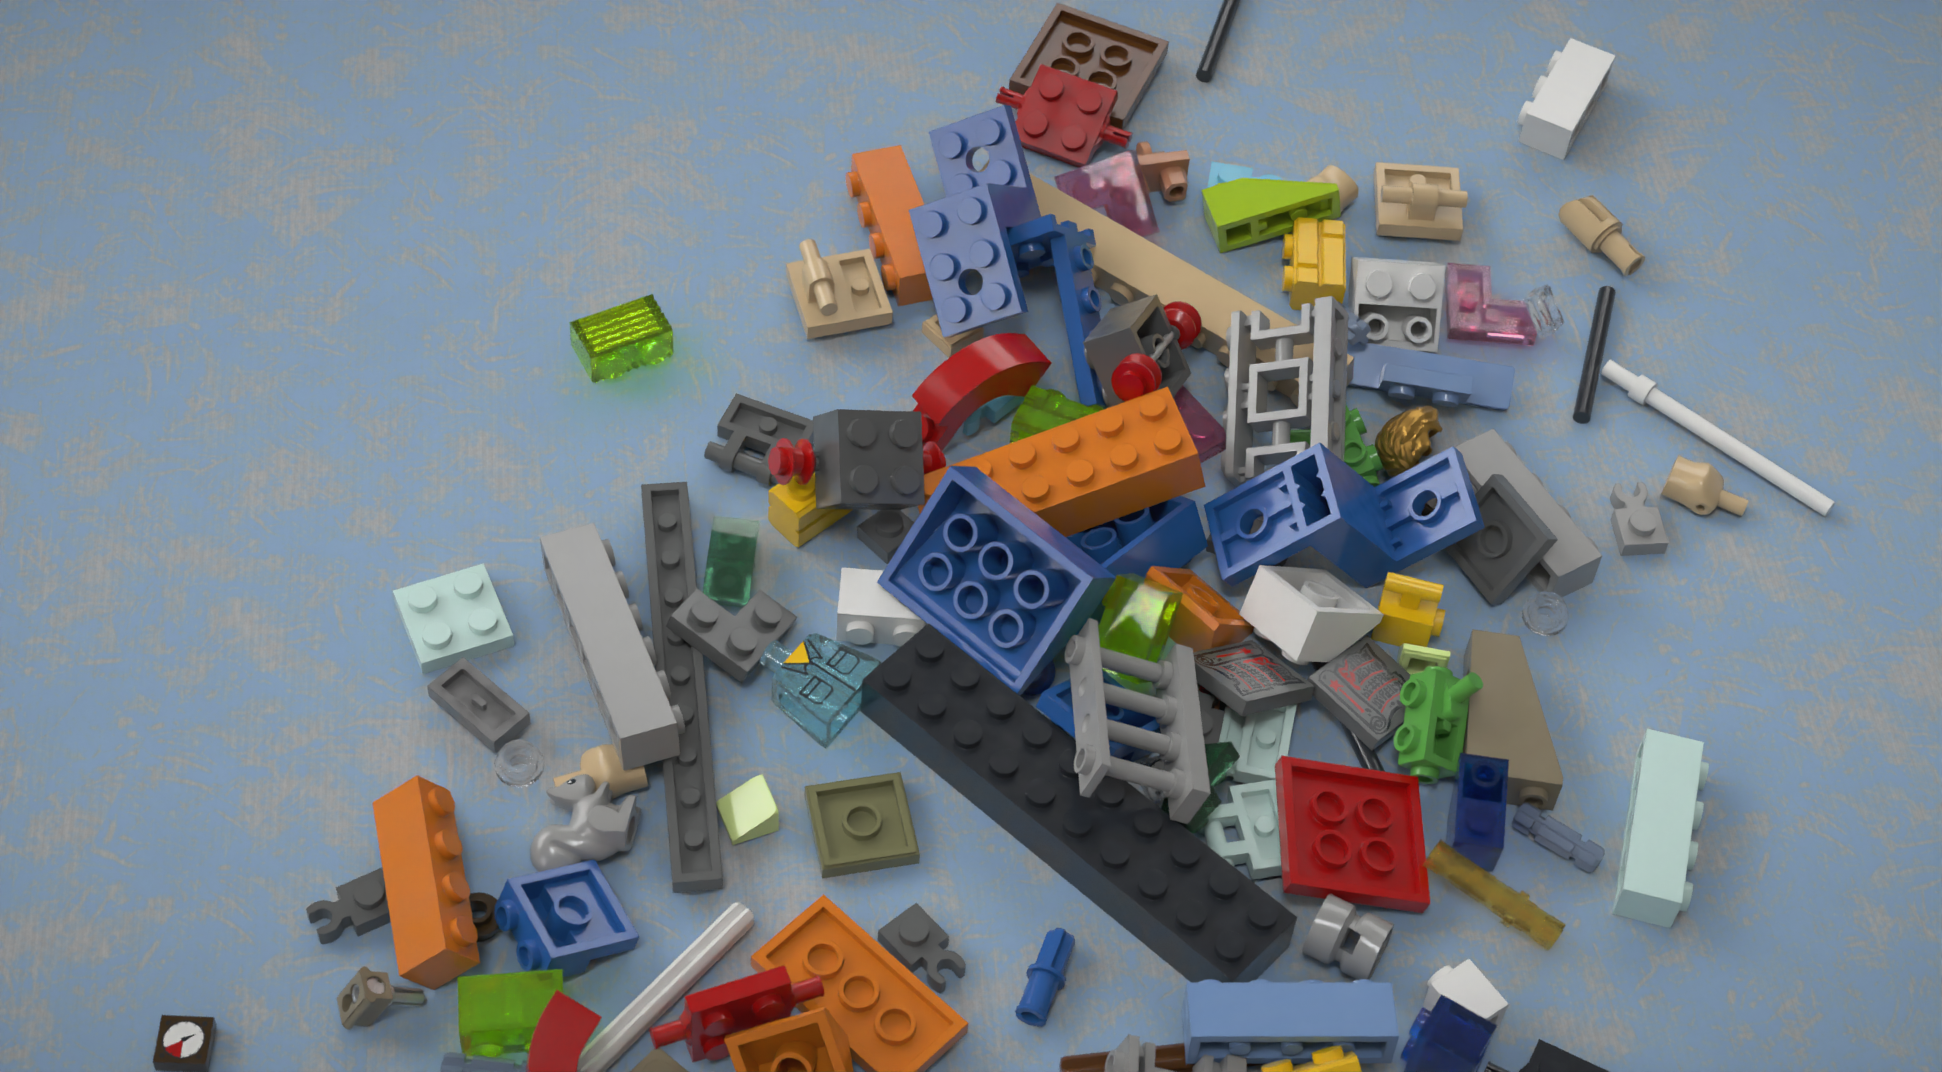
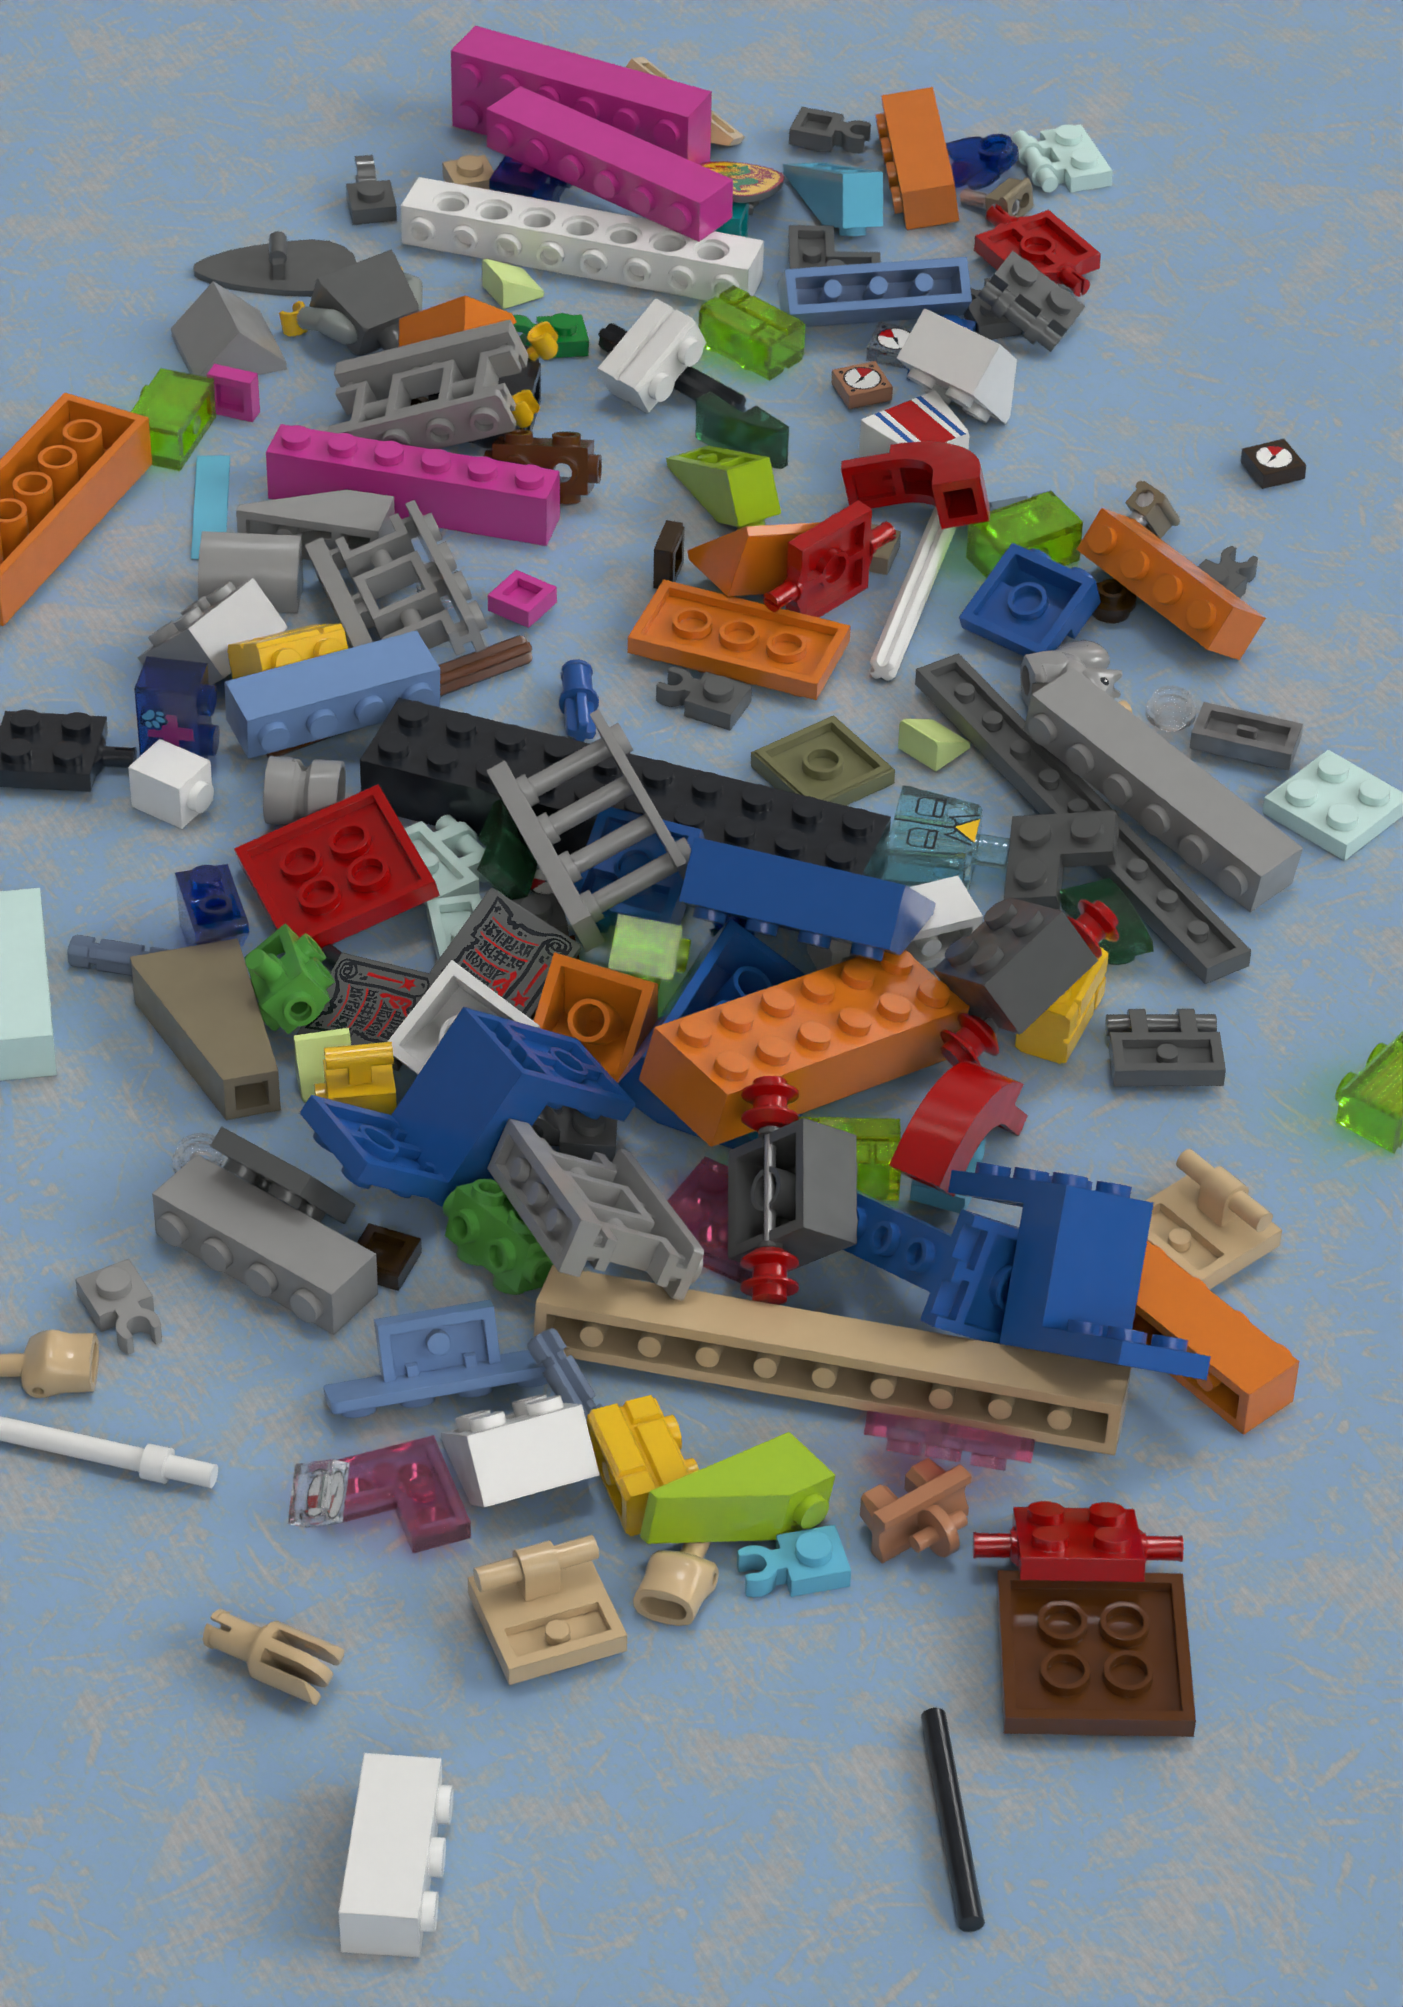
camera: 160 degrees right, 10 degrees down
(1407, 439) = (434, 1257): pearl gold hair -> none
(1501, 899) = (158, 871): clear yellow pin -> none
(1594, 355) = (234, 1500): black bar -> none

